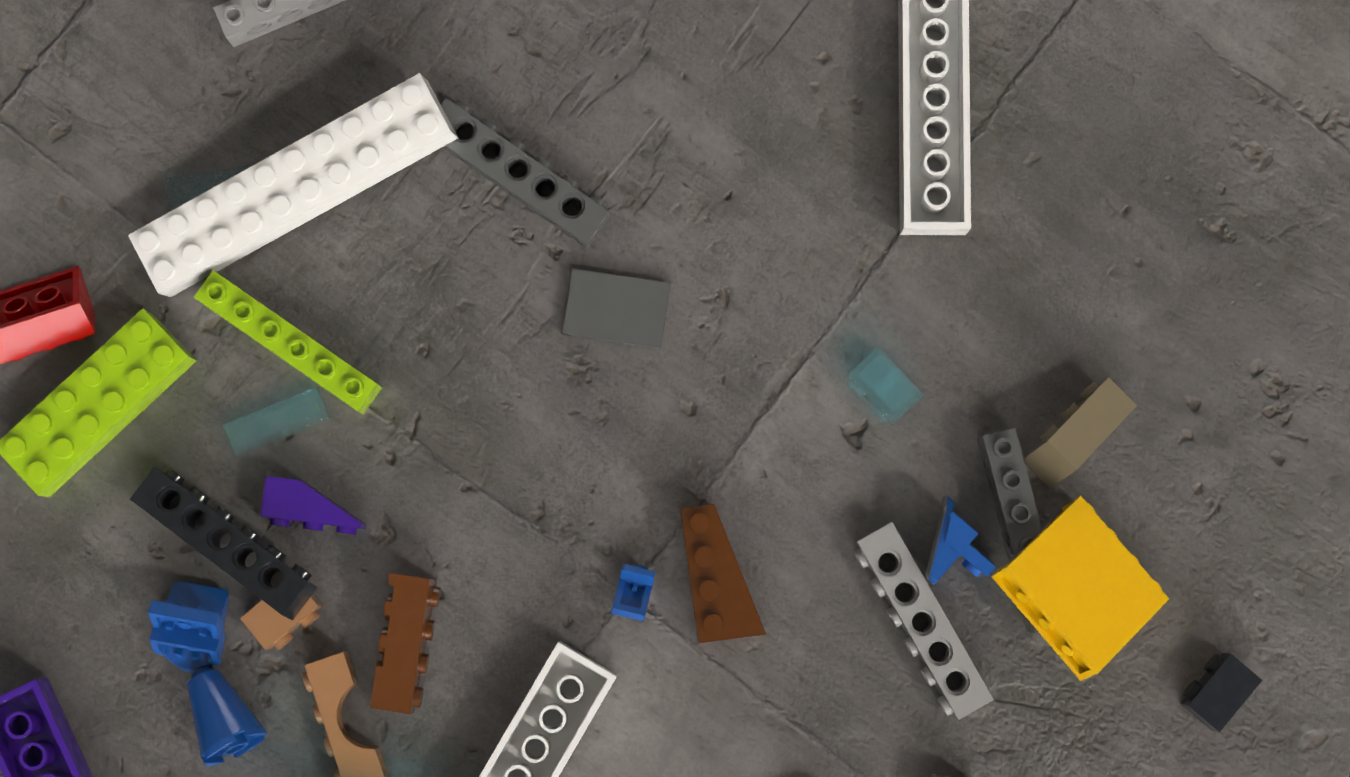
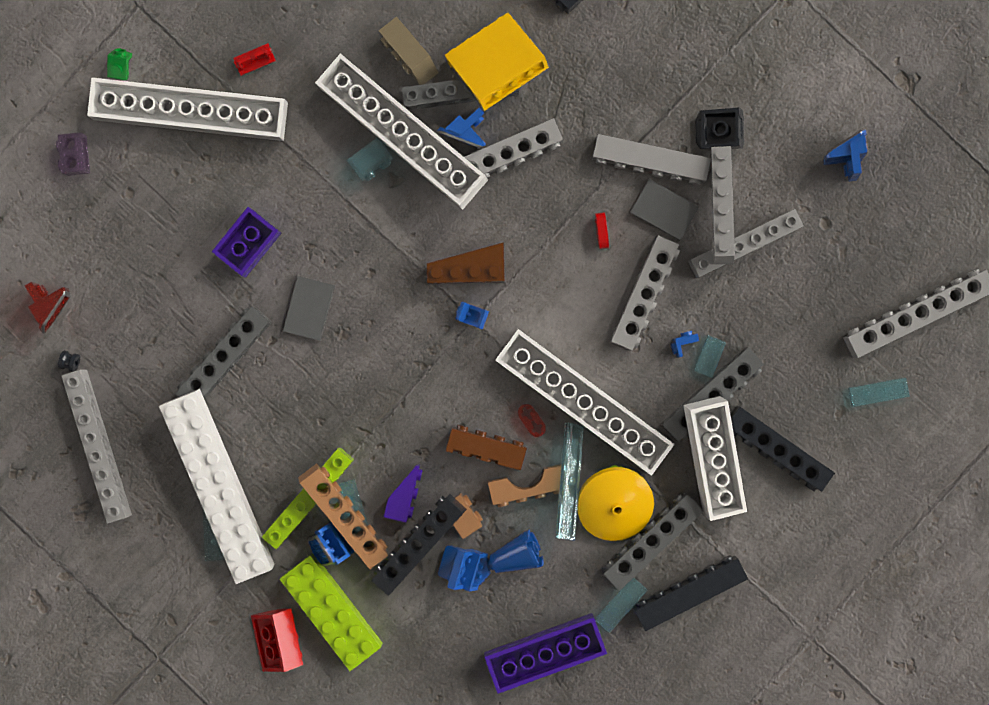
camera: 80 degrees left, 5 degrees up
(198, 459) = (370, 555): none -> medium nougat brick
(213, 392) = (329, 545): none -> blue piece
(455, 711) = (535, 417): none -> clear red beam
(717, 190) = (246, 242): none -> dark purple brick
(937, 437) = (401, 131): none -> white brick
(1033, 170) = (254, 59): none -> red hinge

